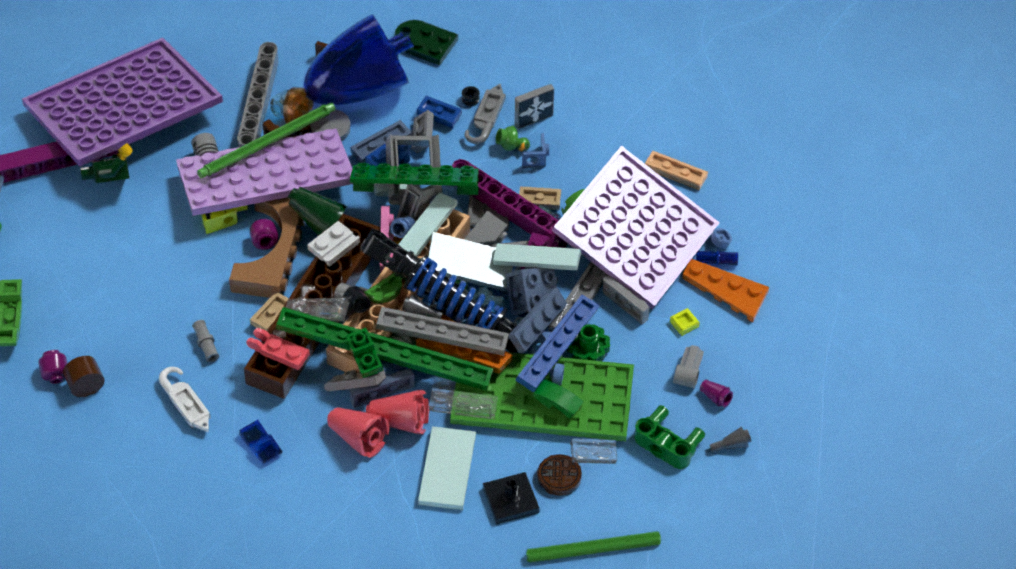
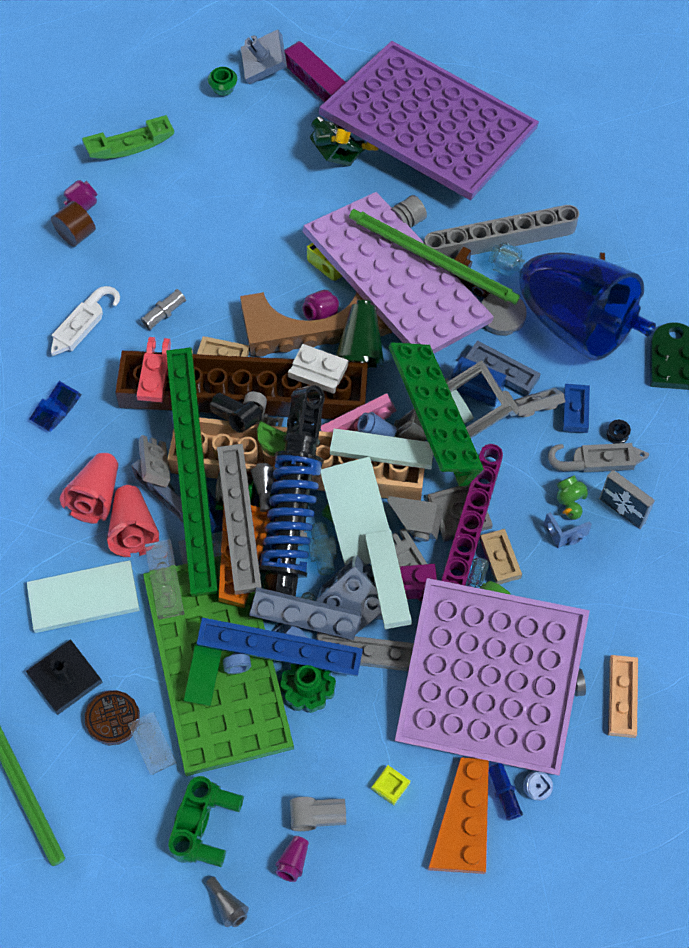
camera: 70 degrees right, 10 degrees up
(296, 104) = (501, 266): clear orange tile -> none
(327, 308) = (209, 382): clear plate -> none
(364, 353) = (172, 447): green slope -> none
(625, 299) = (391, 702): light grey hinge -> none

